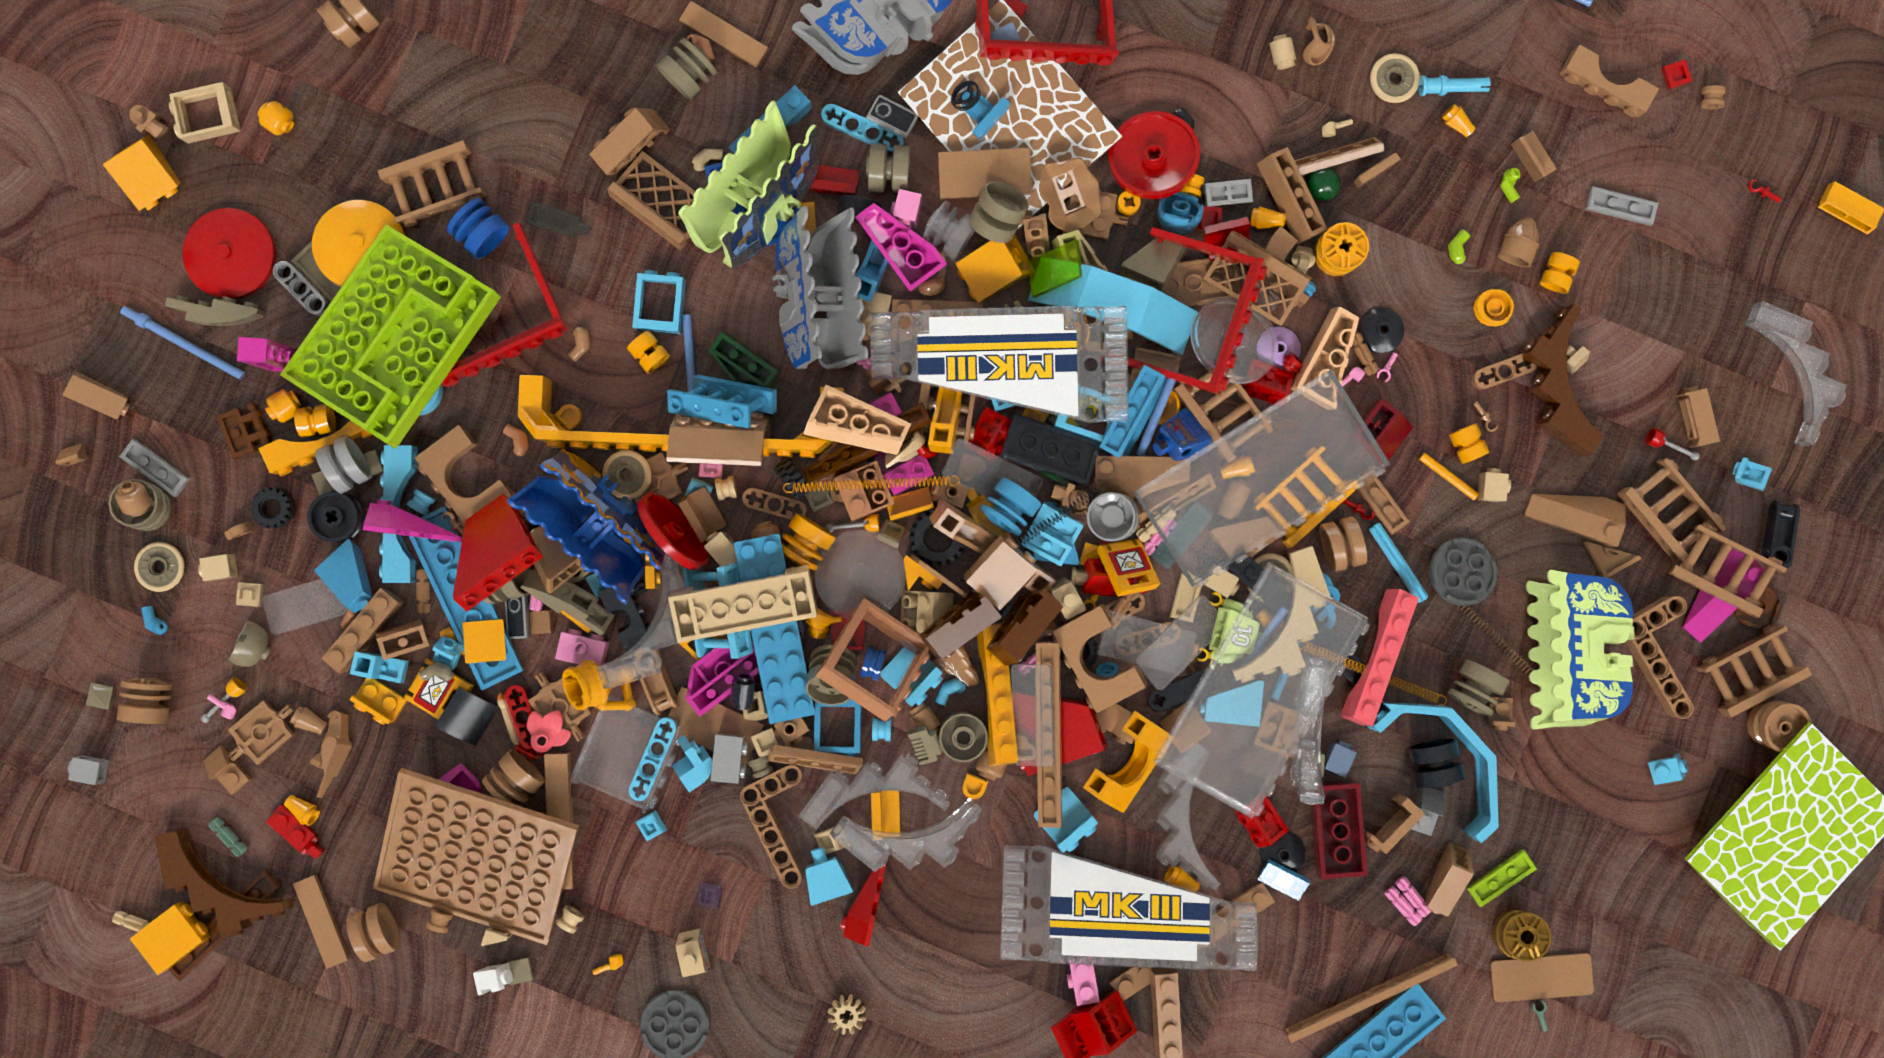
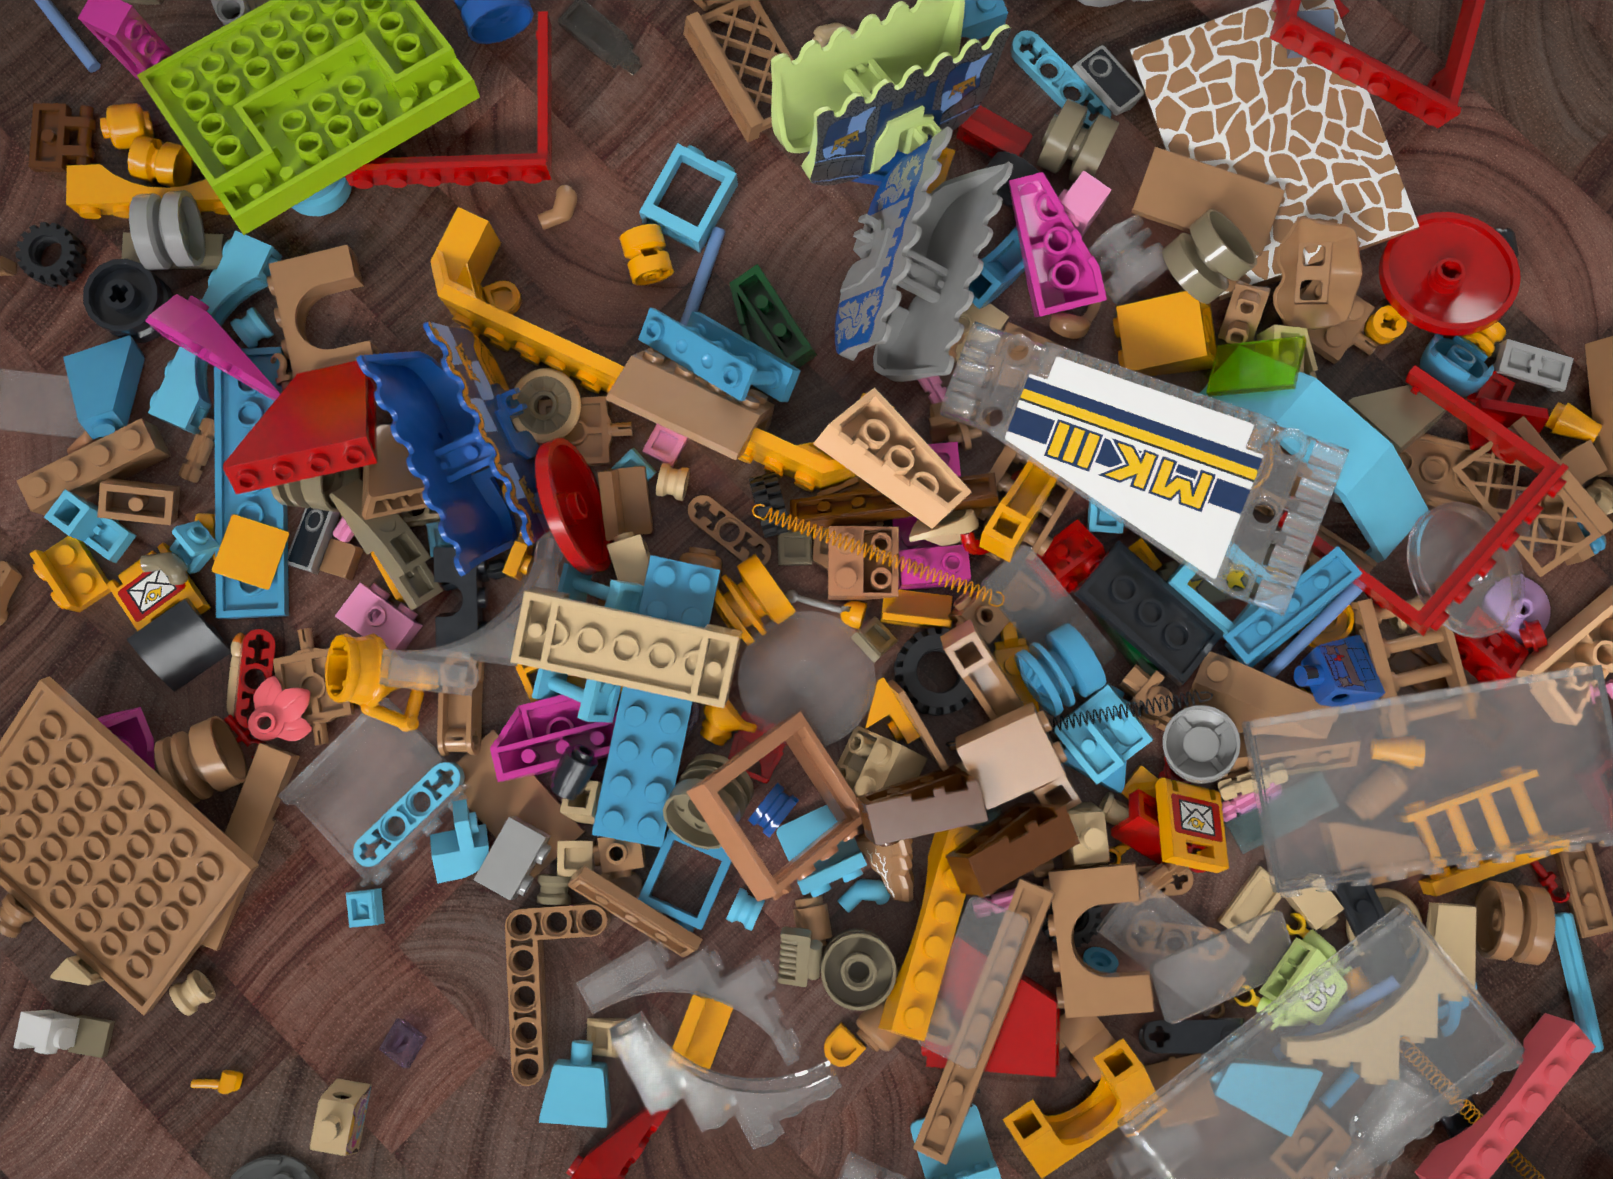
camera: 25 degrees right, 5 degrees down
(519, 439) = (422, 300): nougat arm -> none
(979, 108) = (1235, 112): dark azure piece -> none

